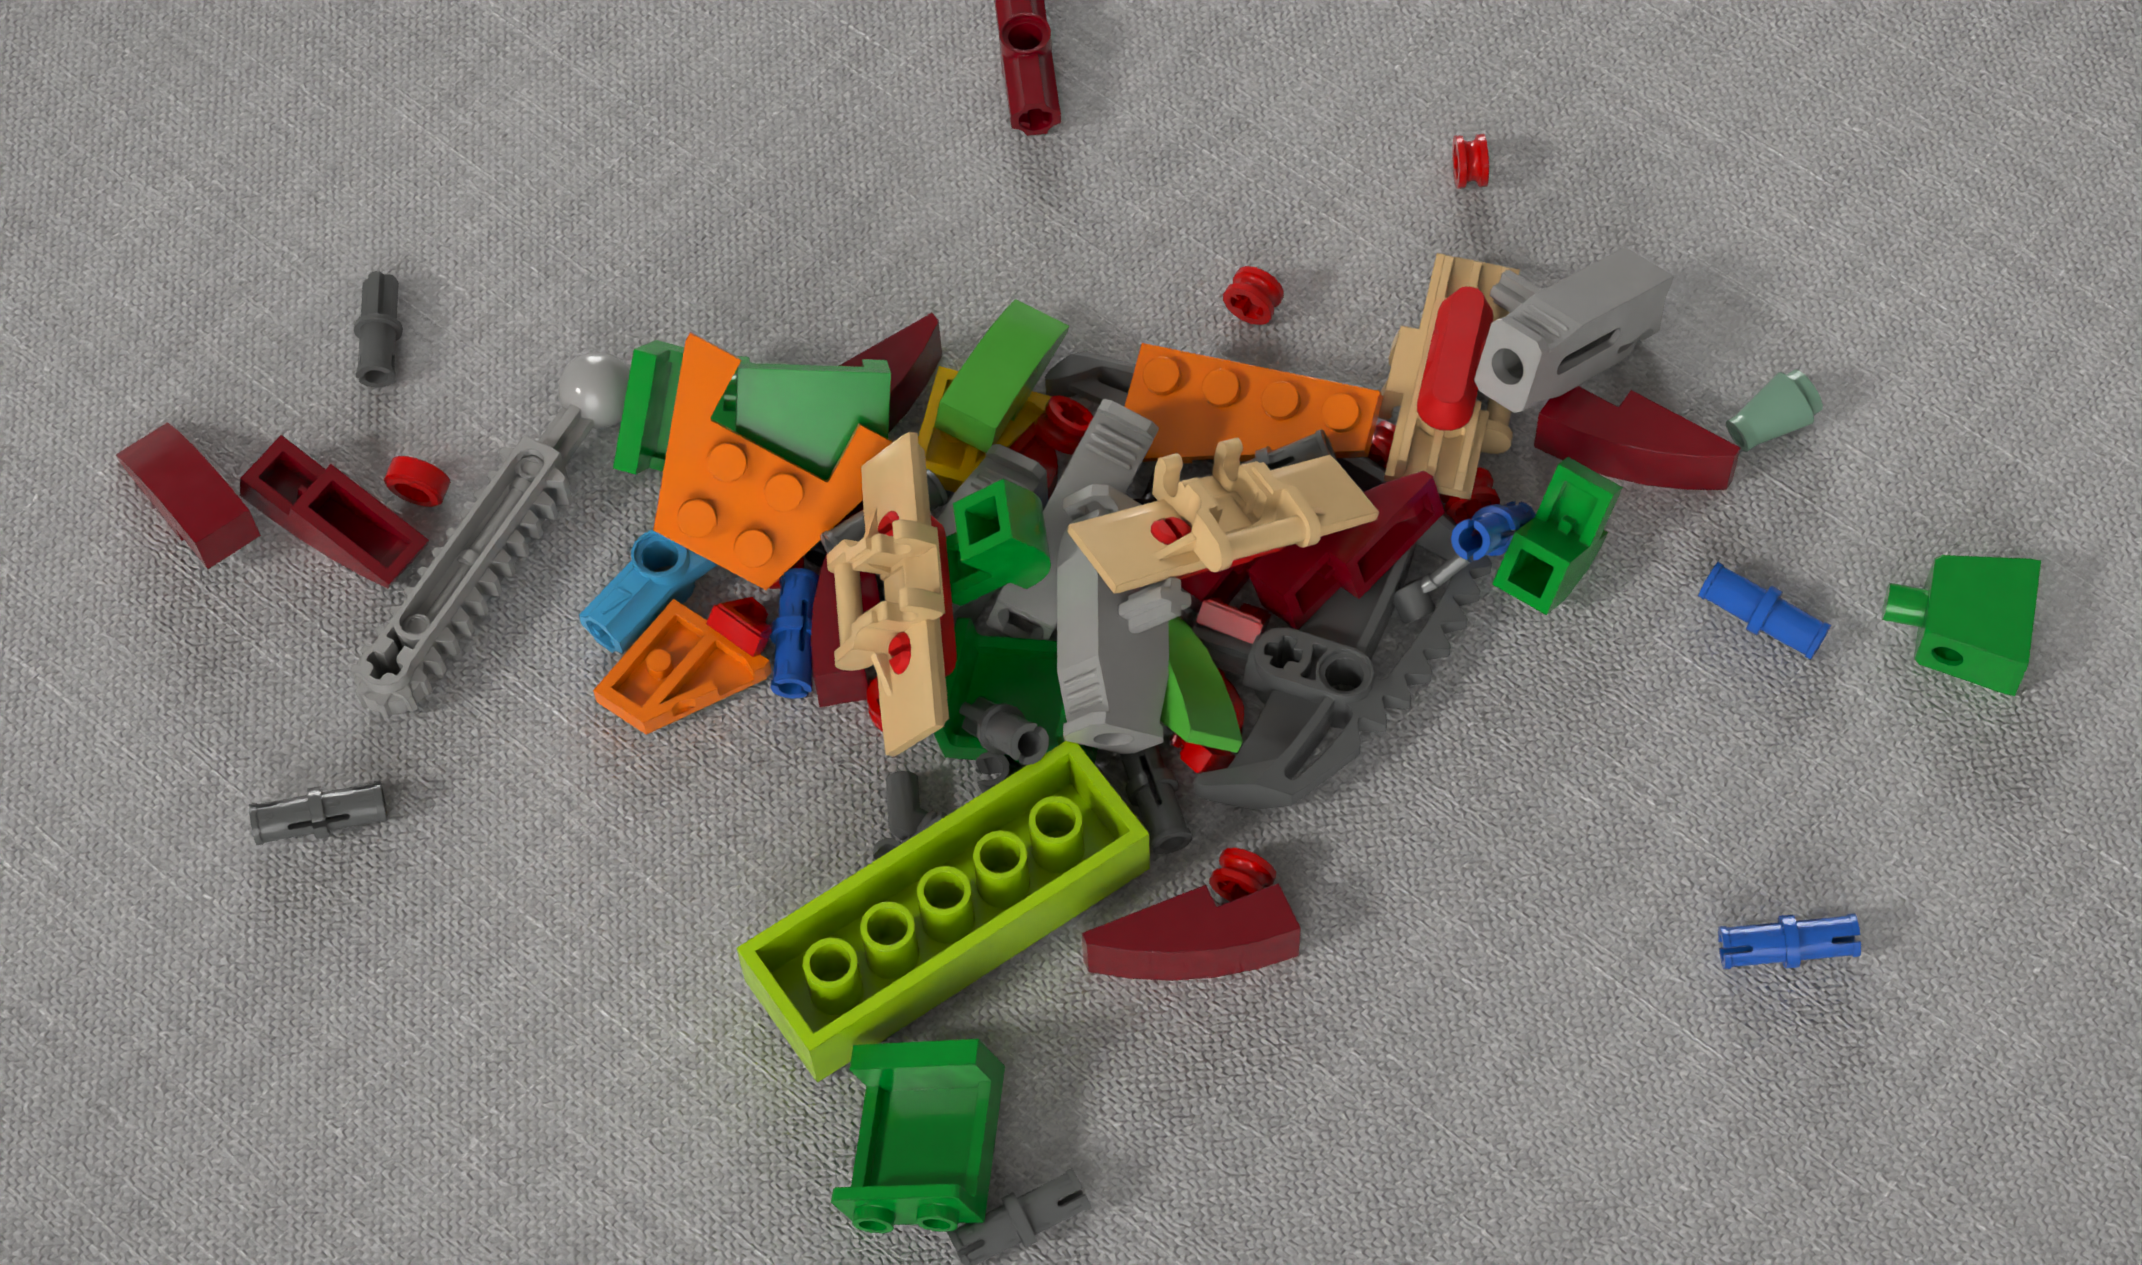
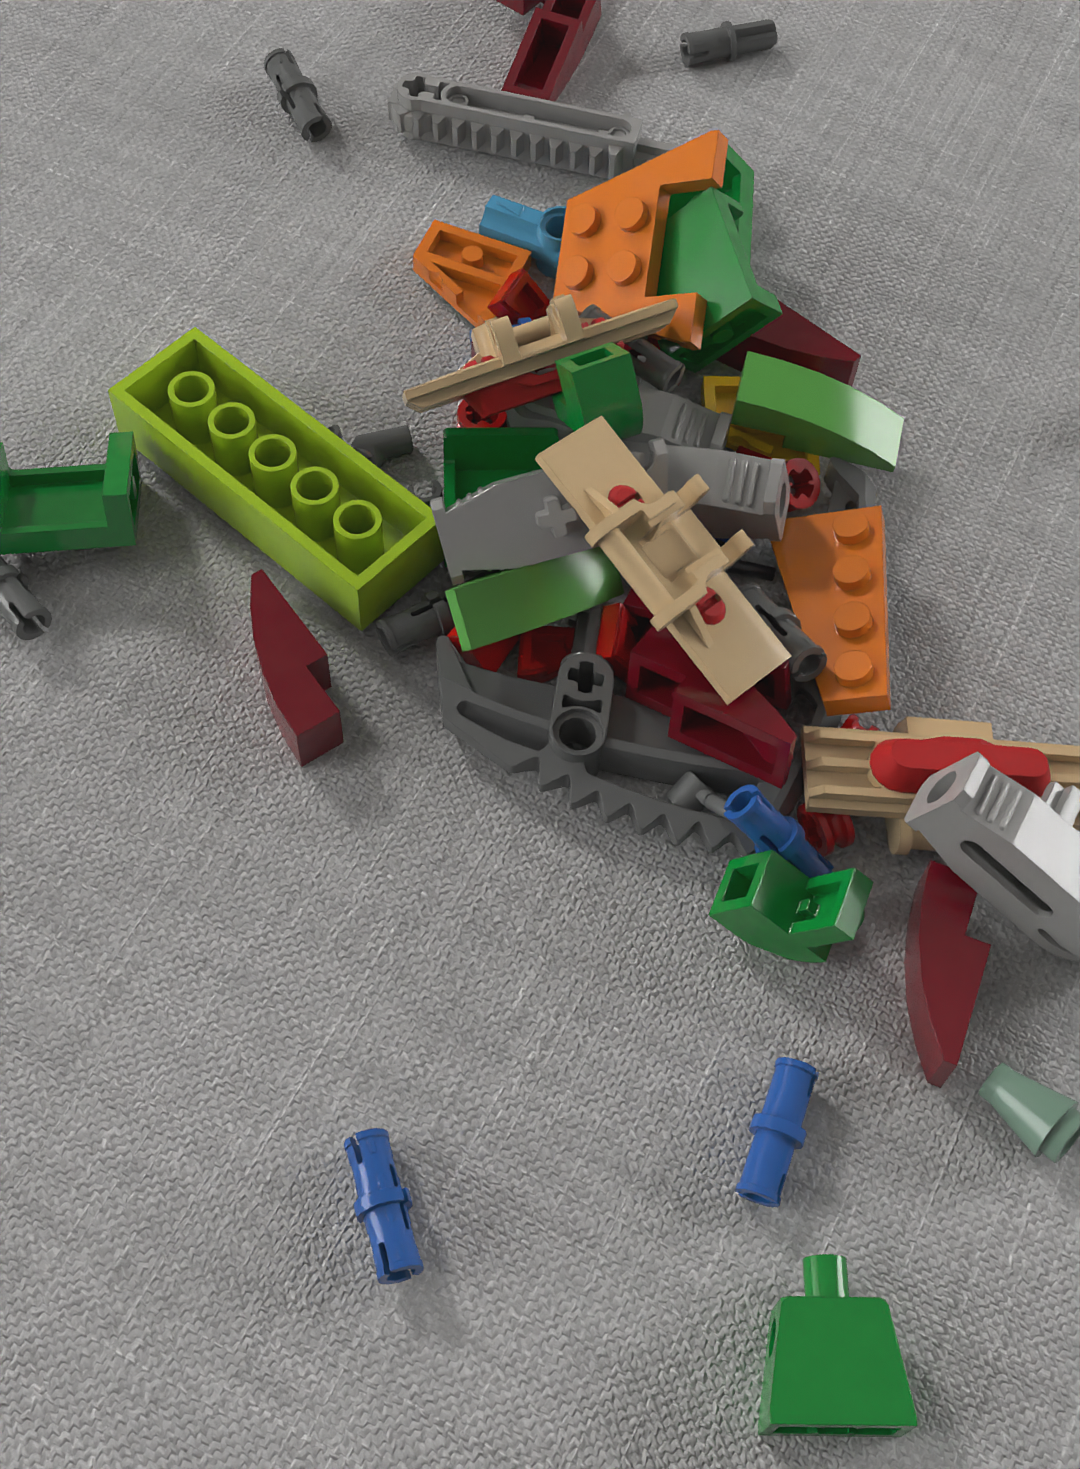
camera: 70 degrees right, 0 degrees up
(416, 481) = (595, 85): red tile -> none
(1005, 730) = (445, 474): dark grey axle -> none
(1241, 874) = (358, 697): red bush -> none
(1253, 295) = (988, 607): red bush -> none

